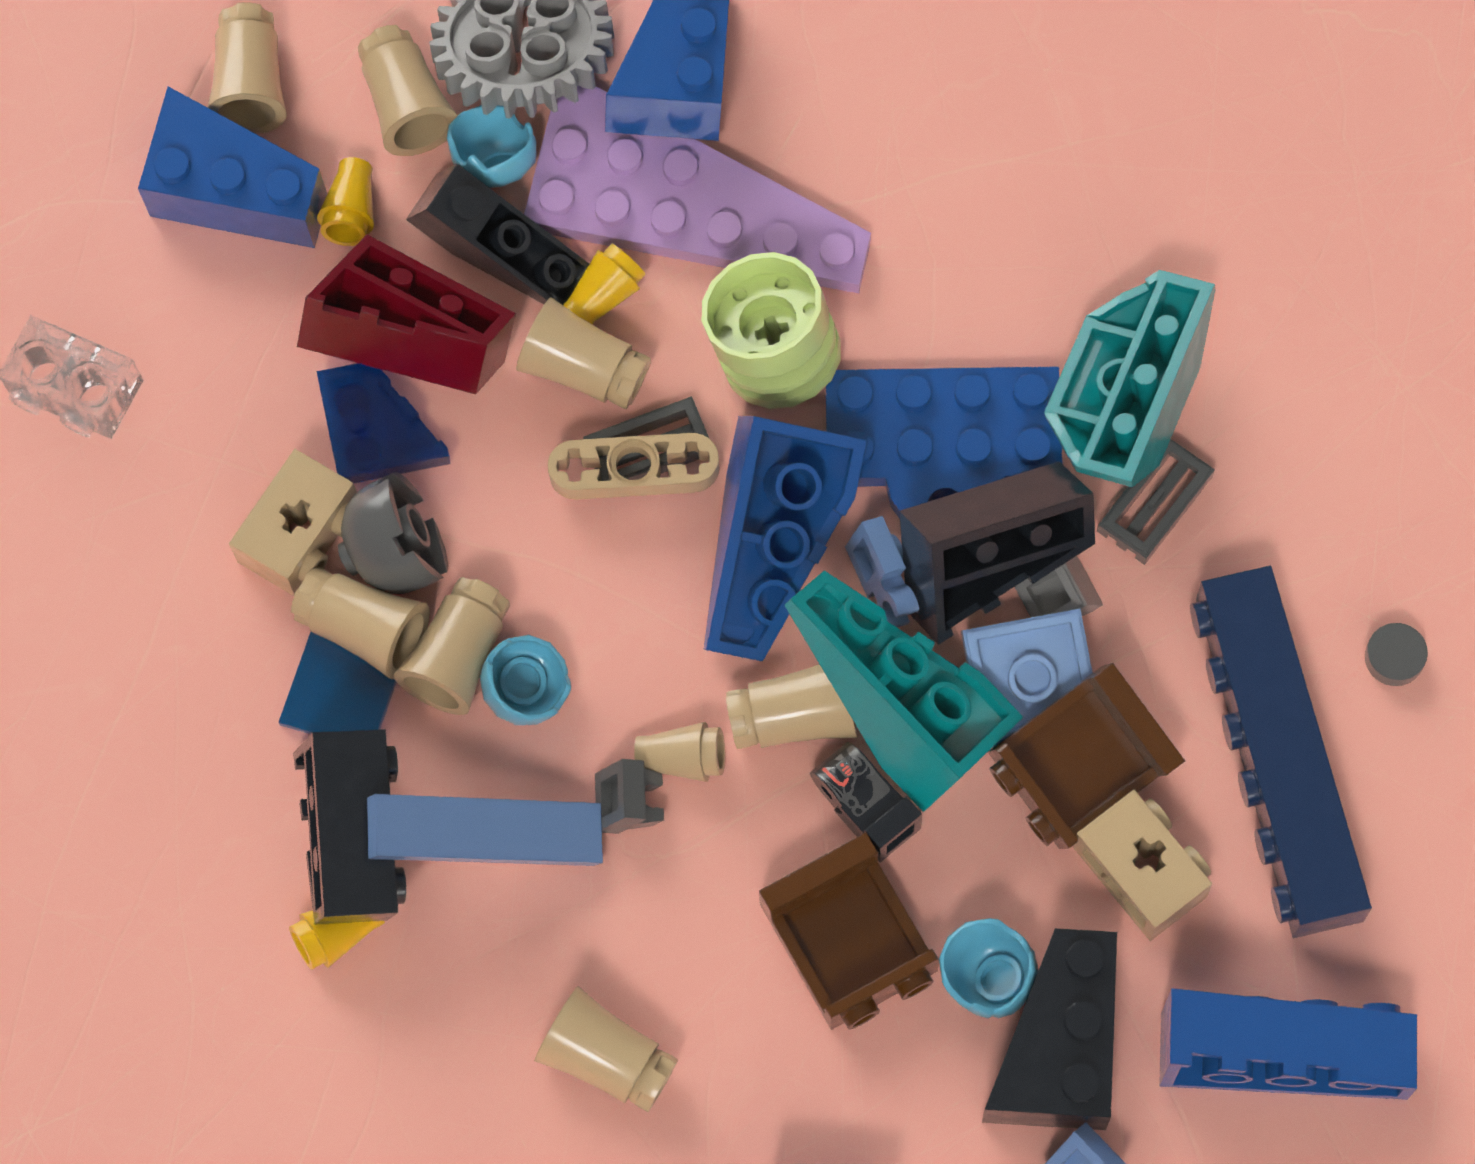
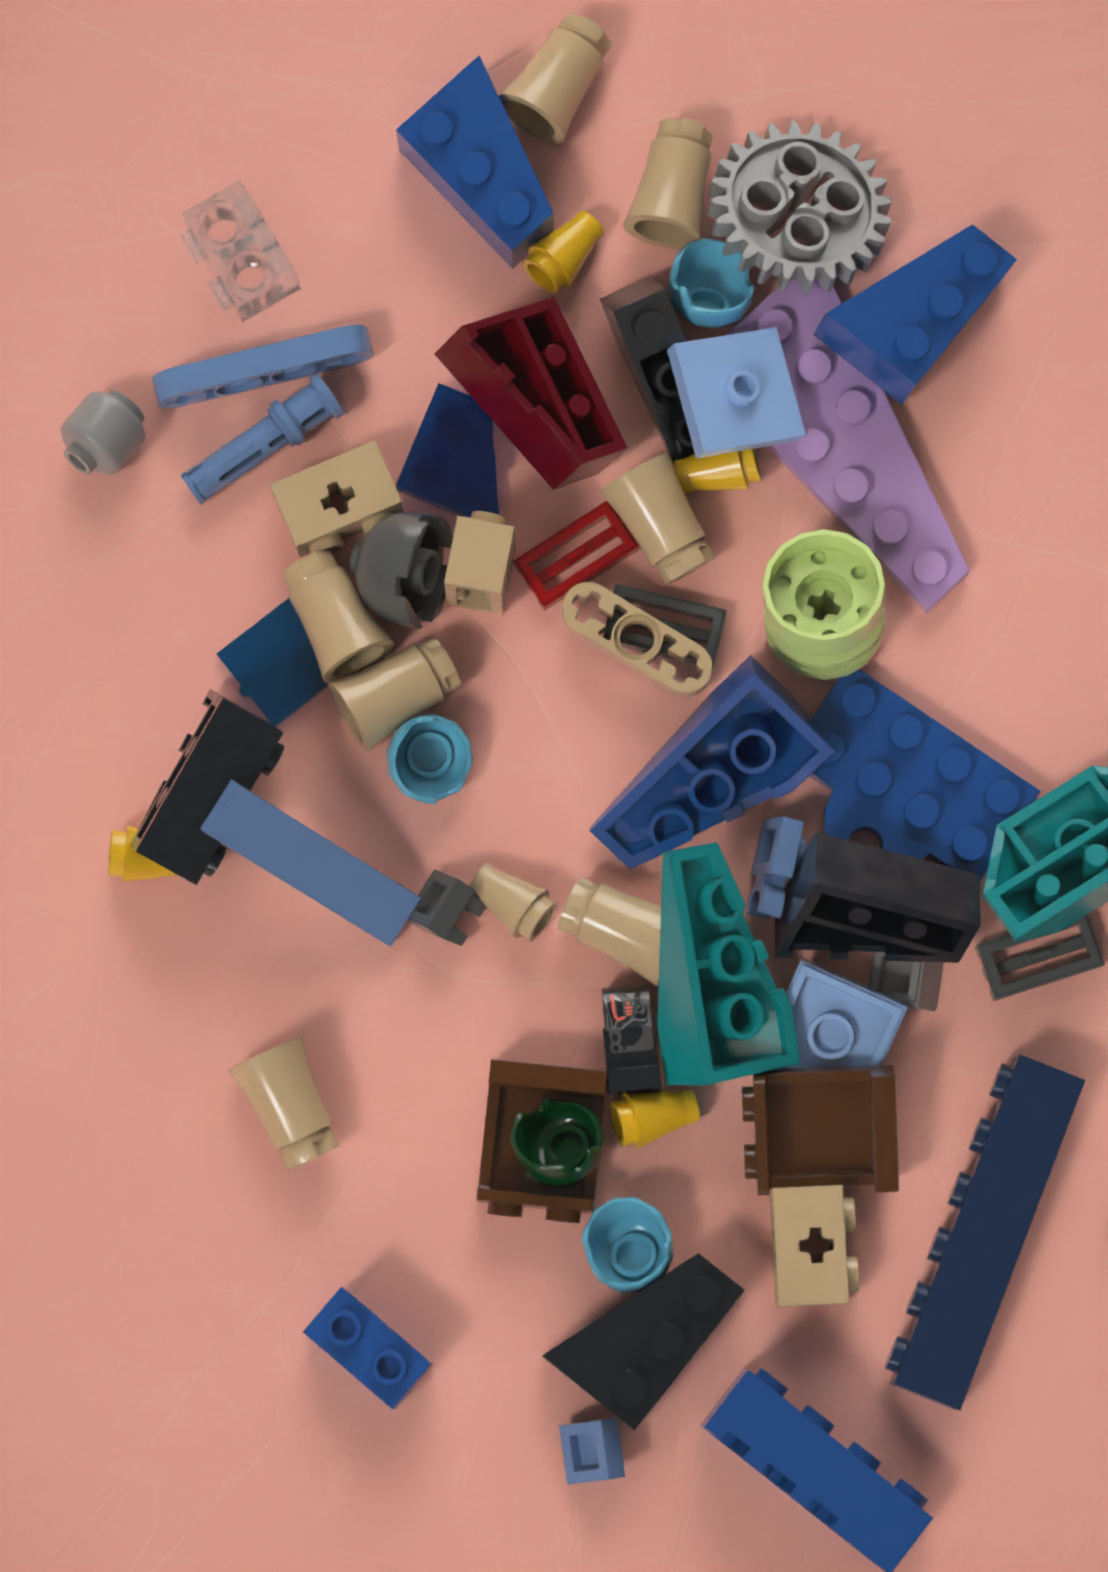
camera: 30 degrees right, 10 degrees up
(51, 601) = (102, 432): none -> light grey head
(154, 459) = (262, 366): none -> medium blue beam
(205, 494) = (285, 424): none -> medium blue pin
(457, 488) = (480, 562): none -> tan brick
(515, 481) = (536, 581): none -> red tile
(575, 211) = (736, 392): none -> light blue plate
(867, 921) = (558, 1141): none -> dark green hair
(927, 851) = (649, 1116): none -> yellow cone

